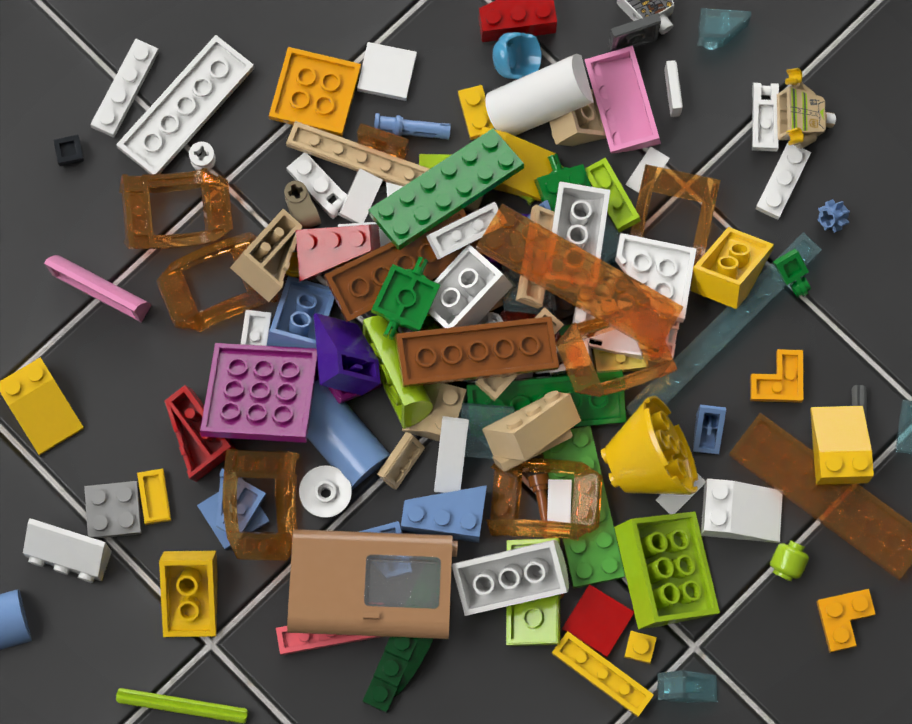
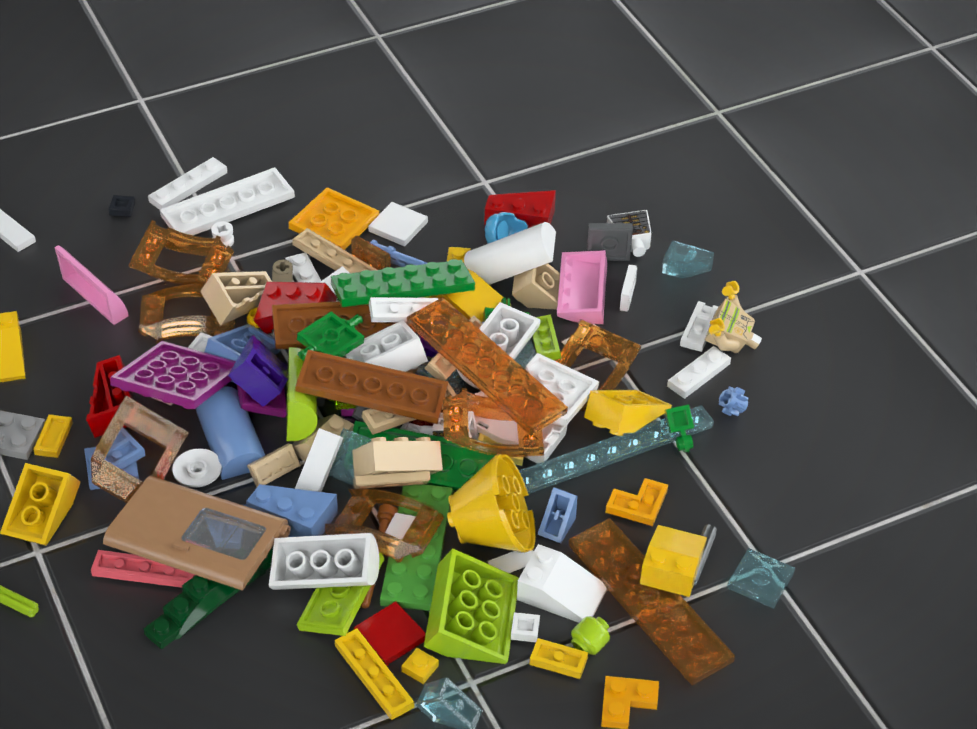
camera: 20 degrees right, 30 degrees down
(724, 570) = (525, 627): none -> white plate
(767, 595) = (558, 658): none -> yellow plate

